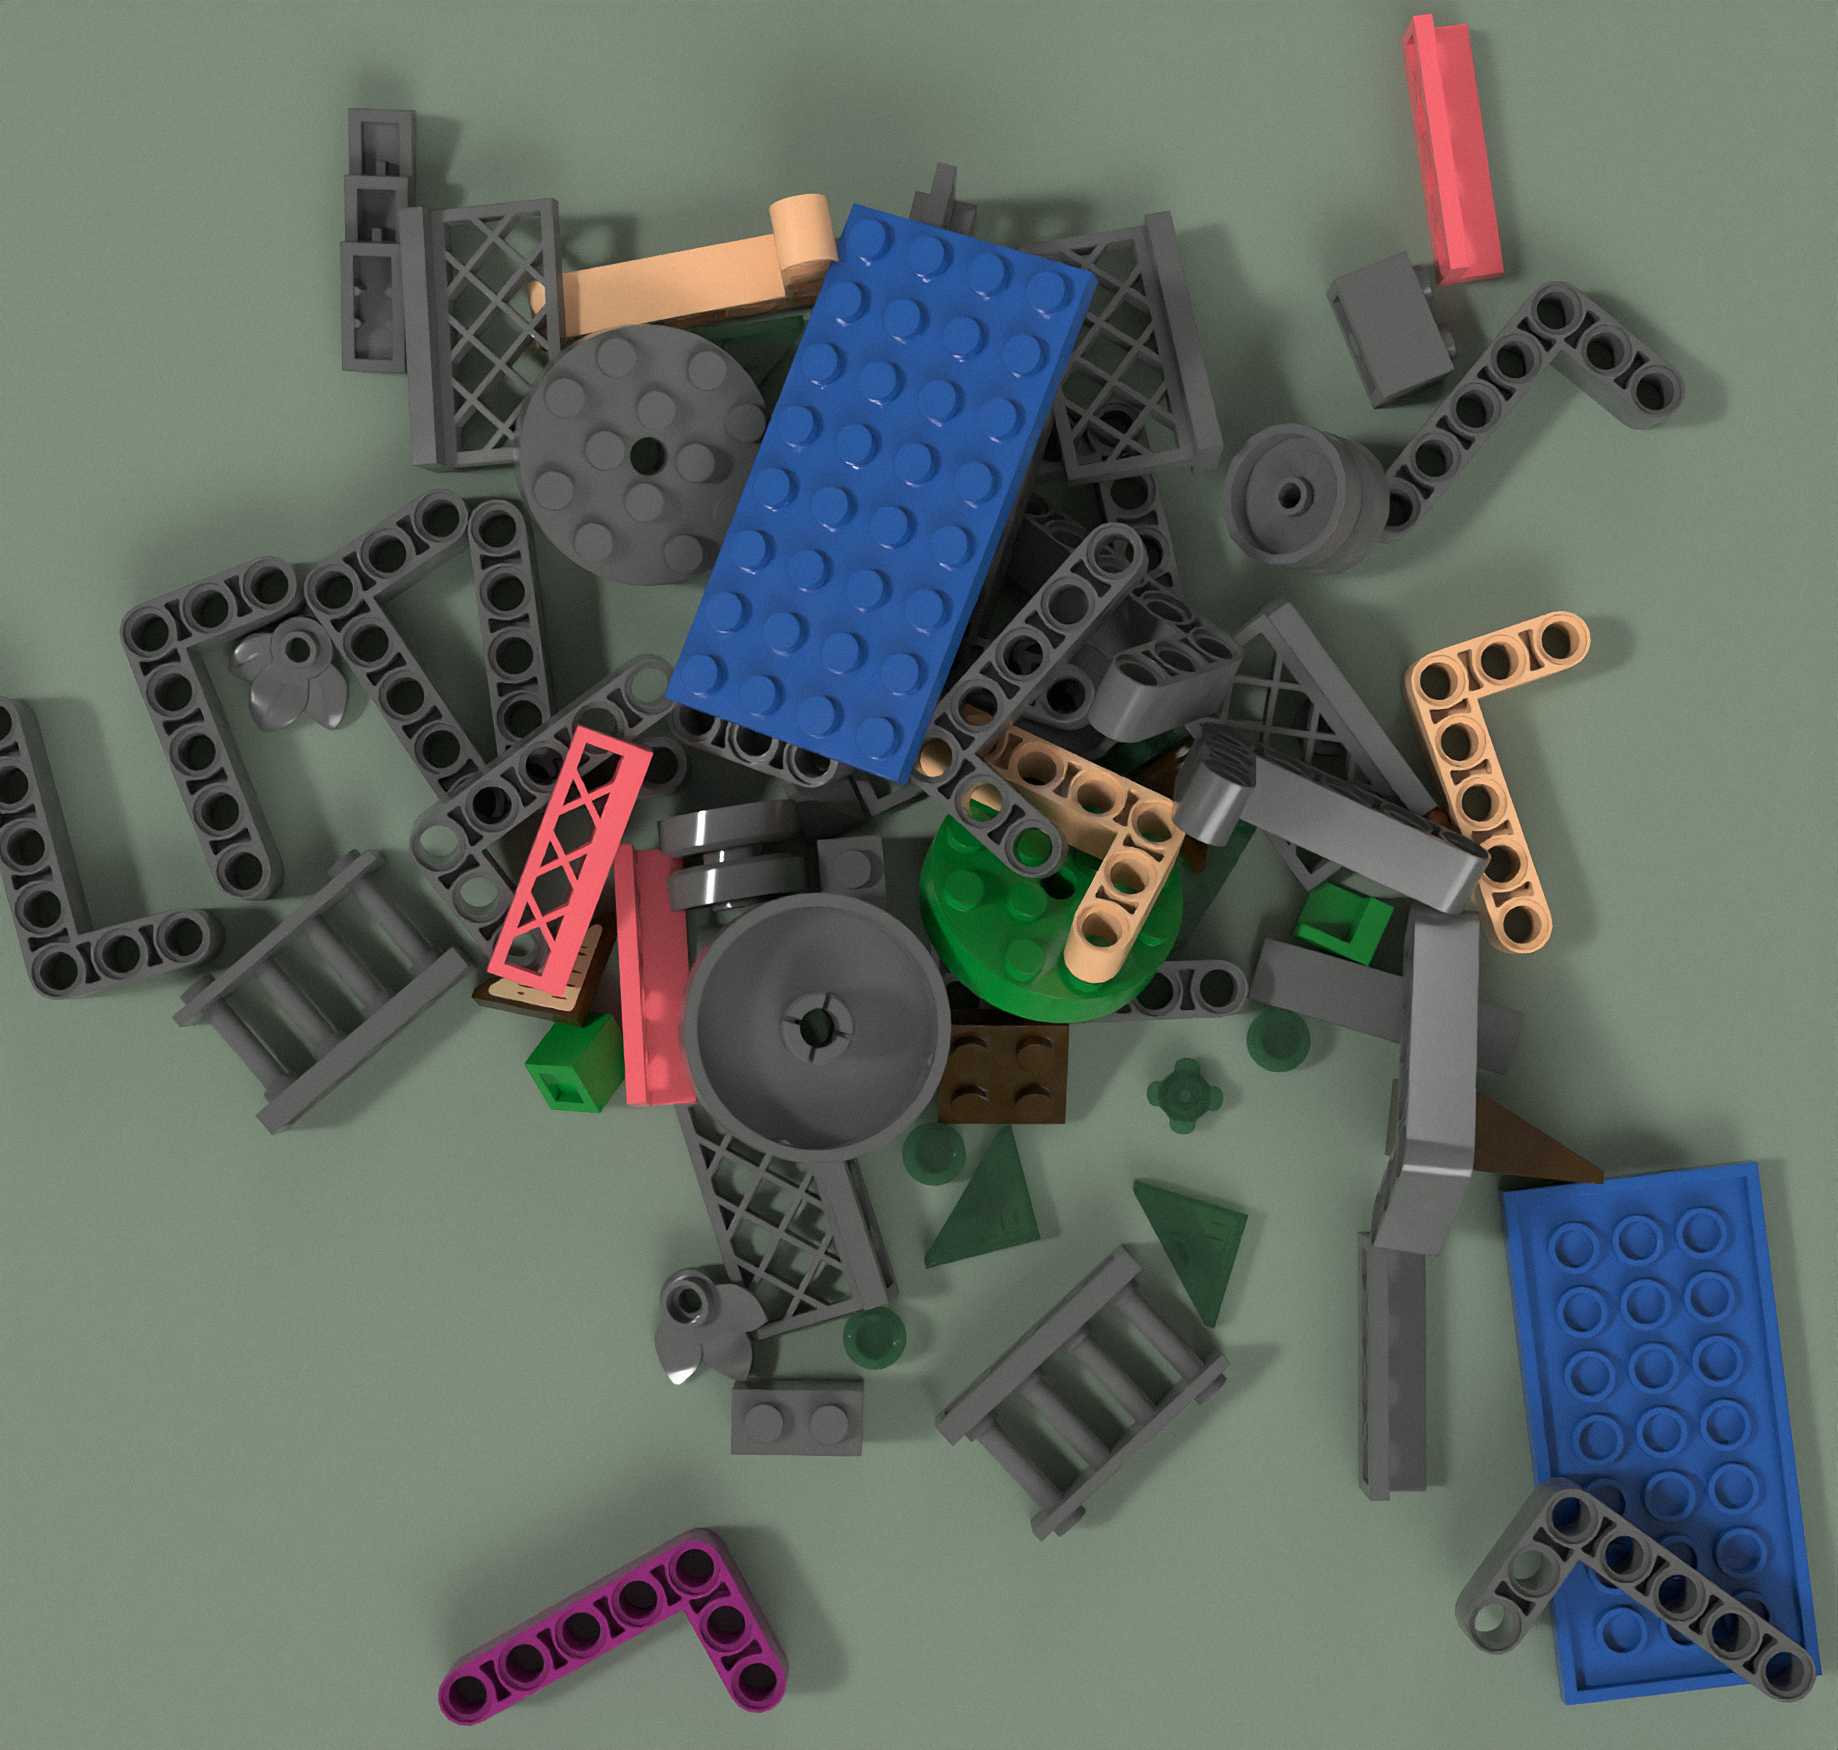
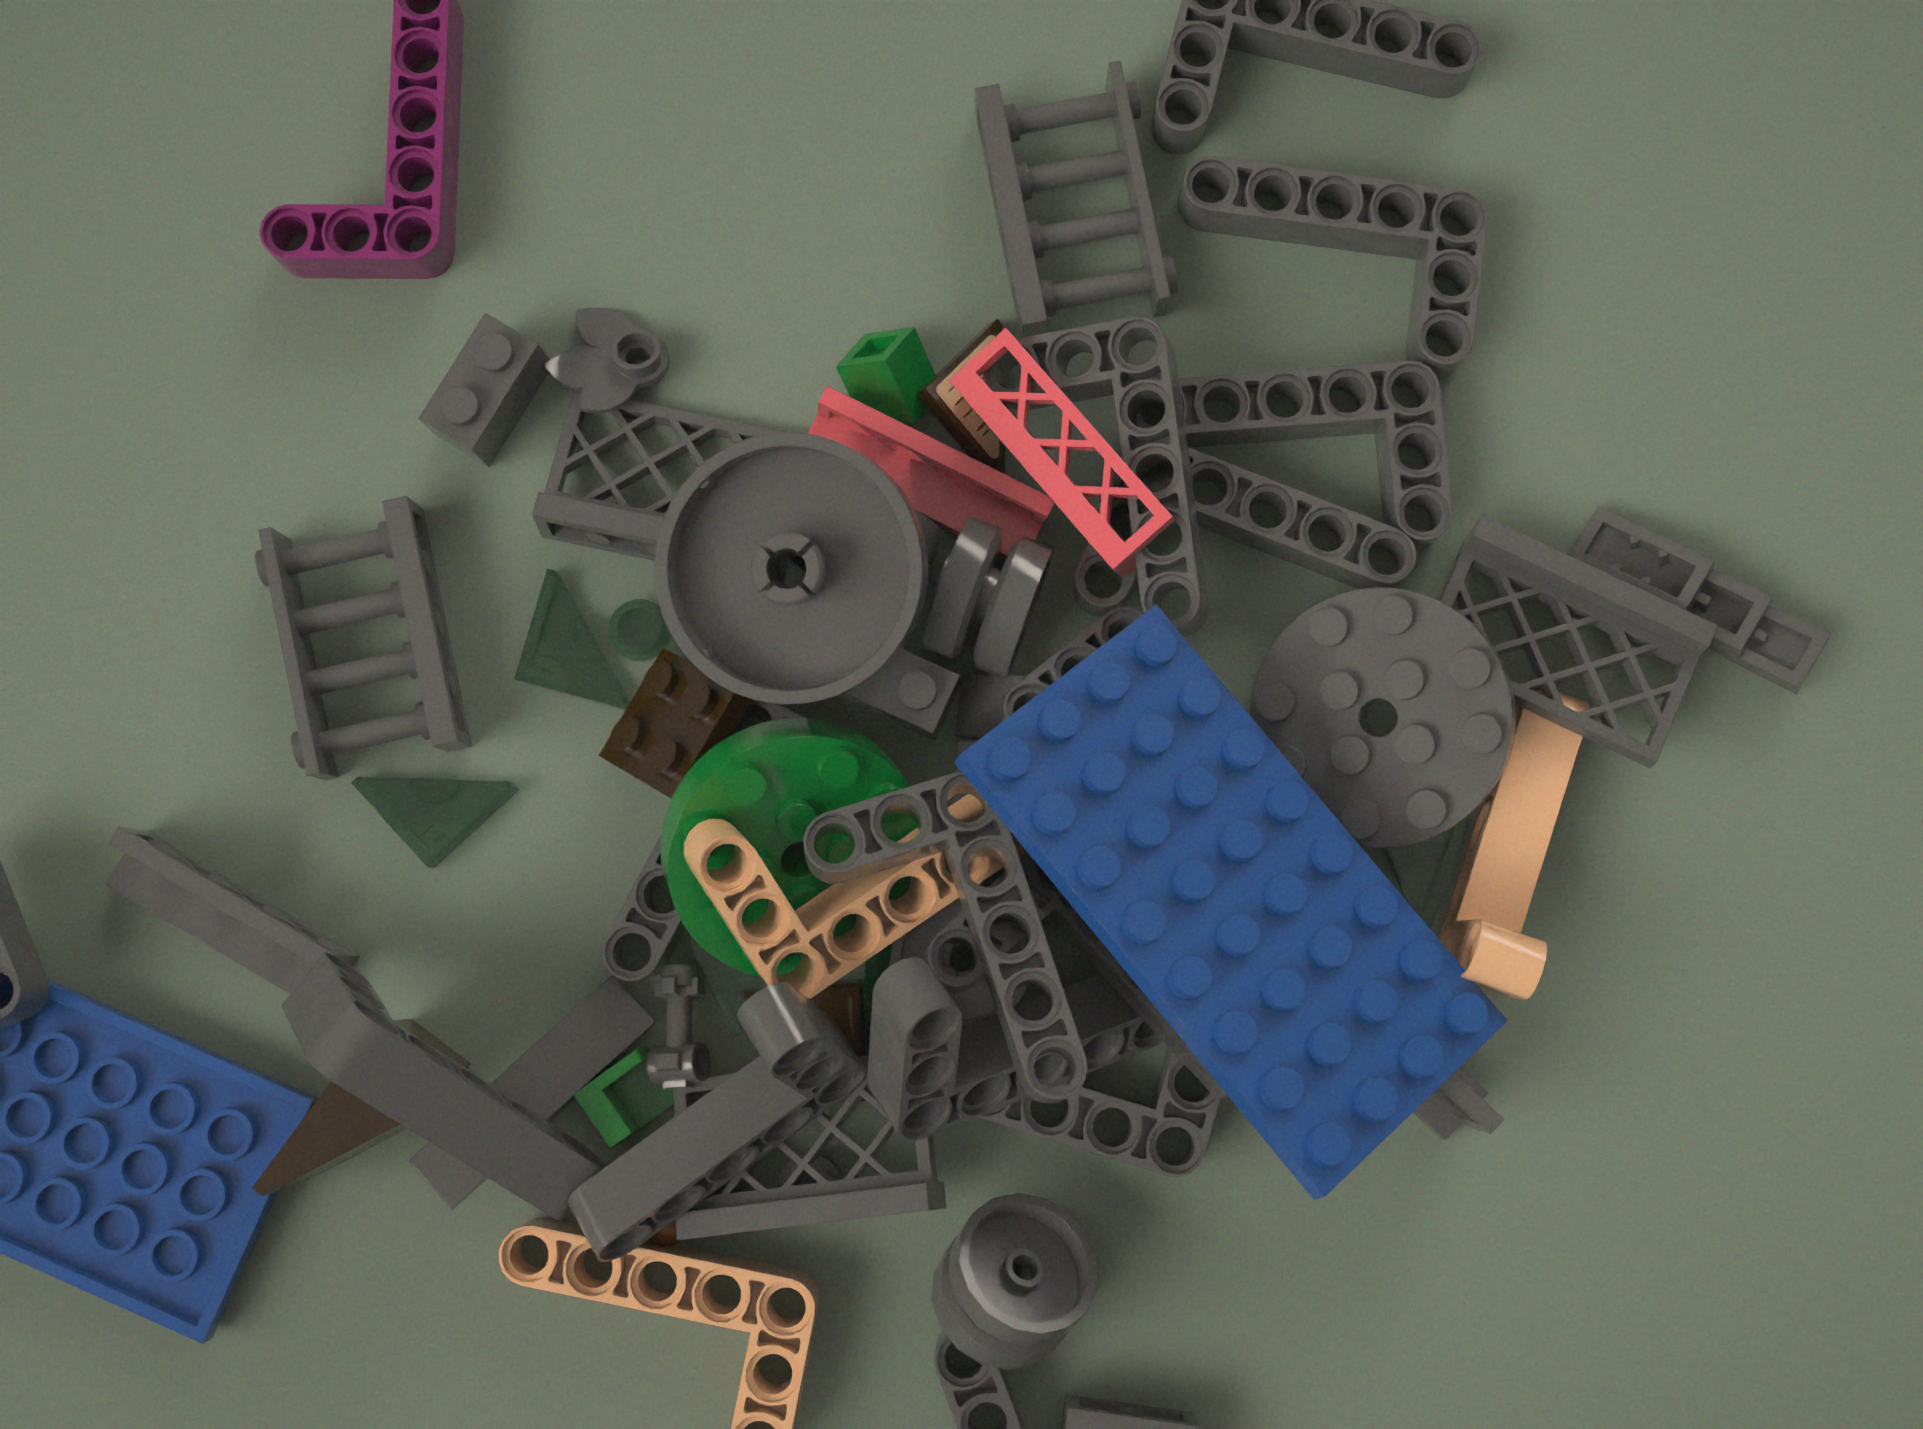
camera: 125 degrees right, 5 degrees down
(287, 684) = (1351, 313): dark grey plate -> none
(874, 1337) = (513, 492): clear green plate -> none
(1166, 1095) = (577, 880): clear green plate -> none
(1177, 357) = (1208, 1239): dark grey fence -> none
(1278, 1040) = (560, 980): clear green plate -> none
(1287, 895) = (680, 1060): none -> dark grey bar

